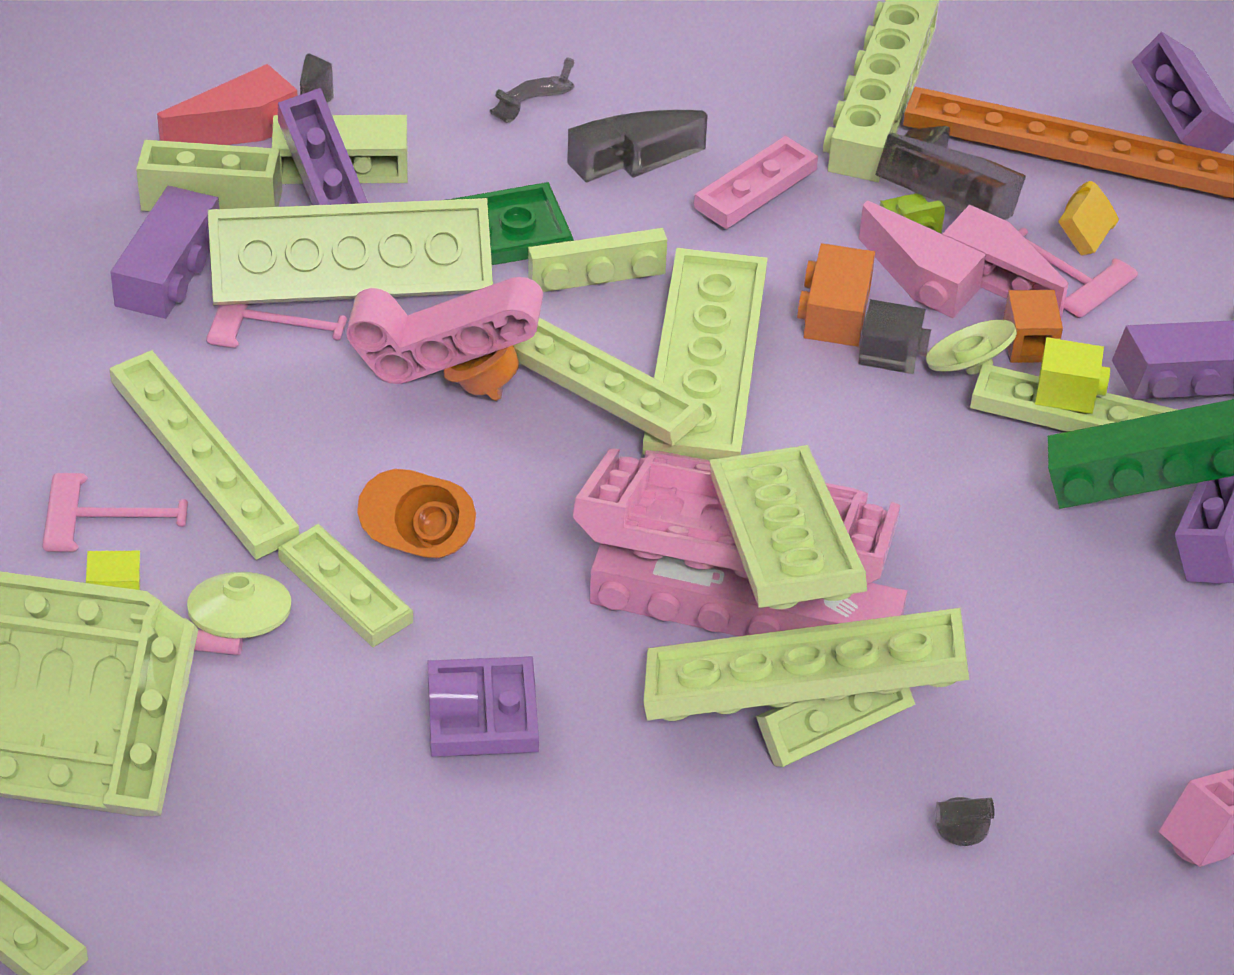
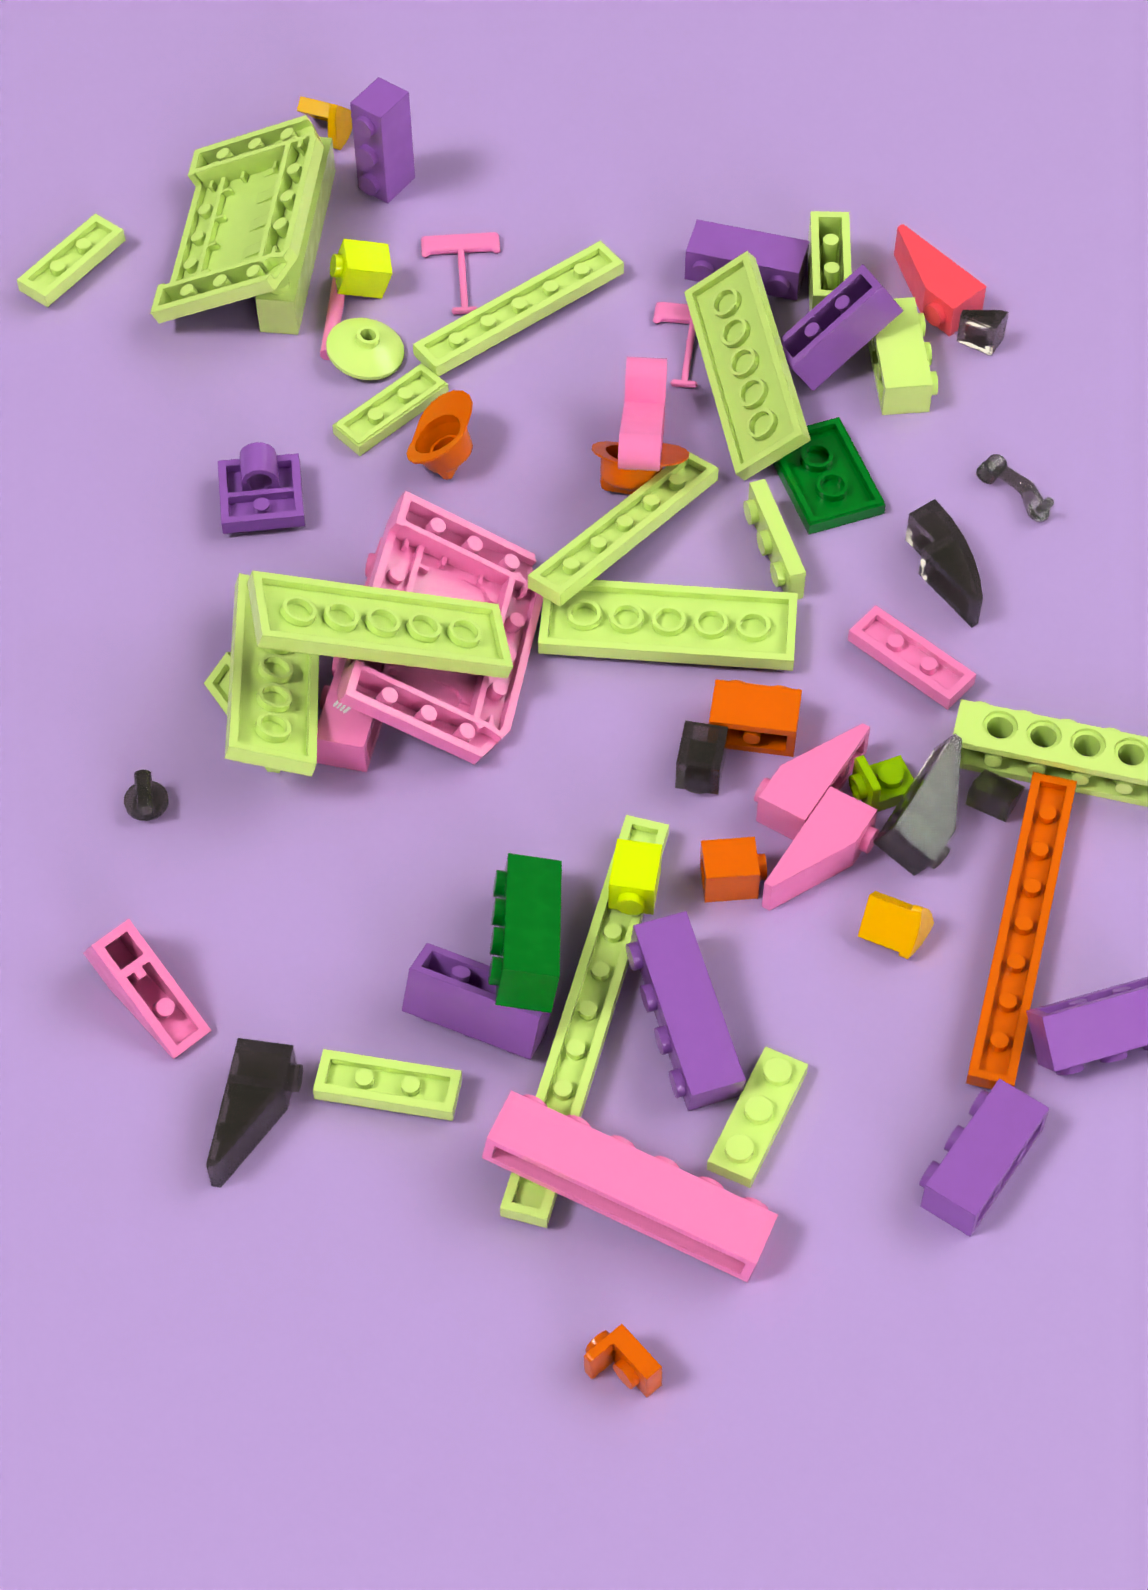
camera: 90 degrees right, 10 degrees up
(971, 346) = (690, 816): yellowish green dish -> none
(1096, 289) = (812, 941): bright pink piece -> none

